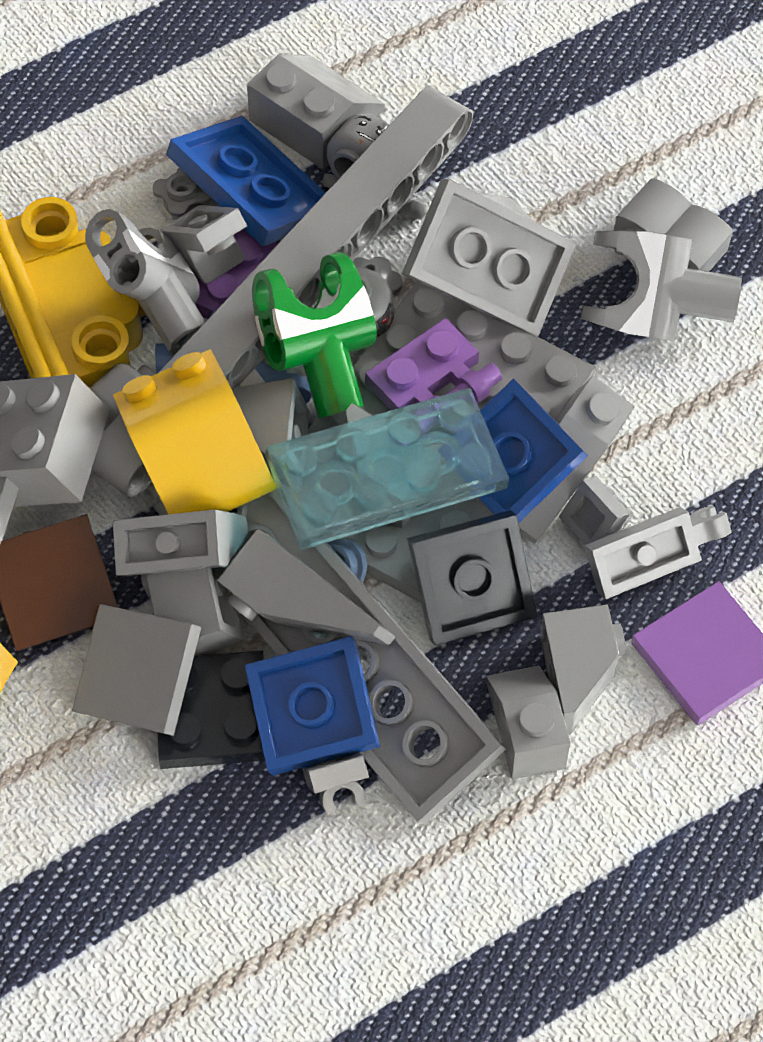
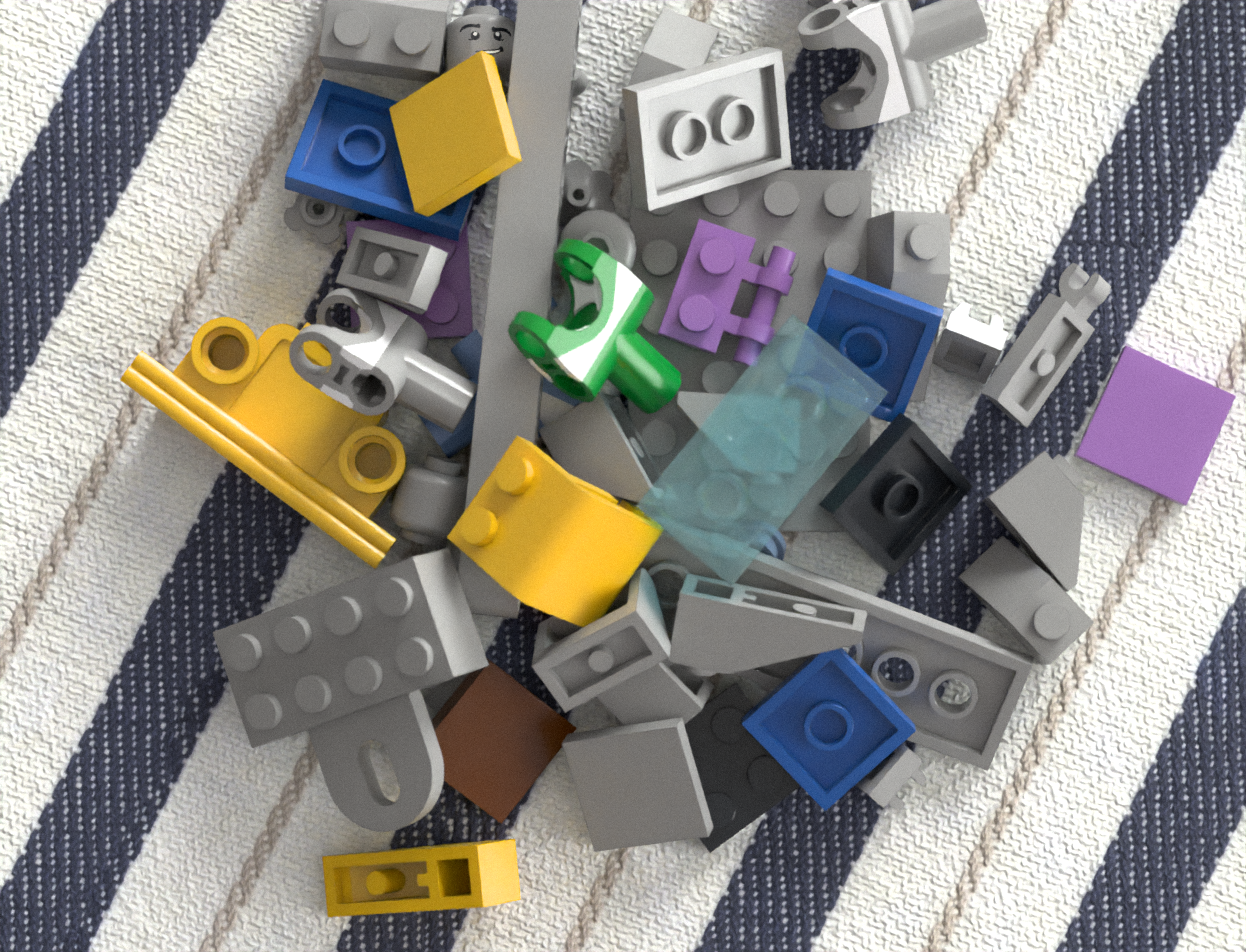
camera: 30 degrees left, 25 degrees up
(305, 168) = (455, 134): none -> yellow tile

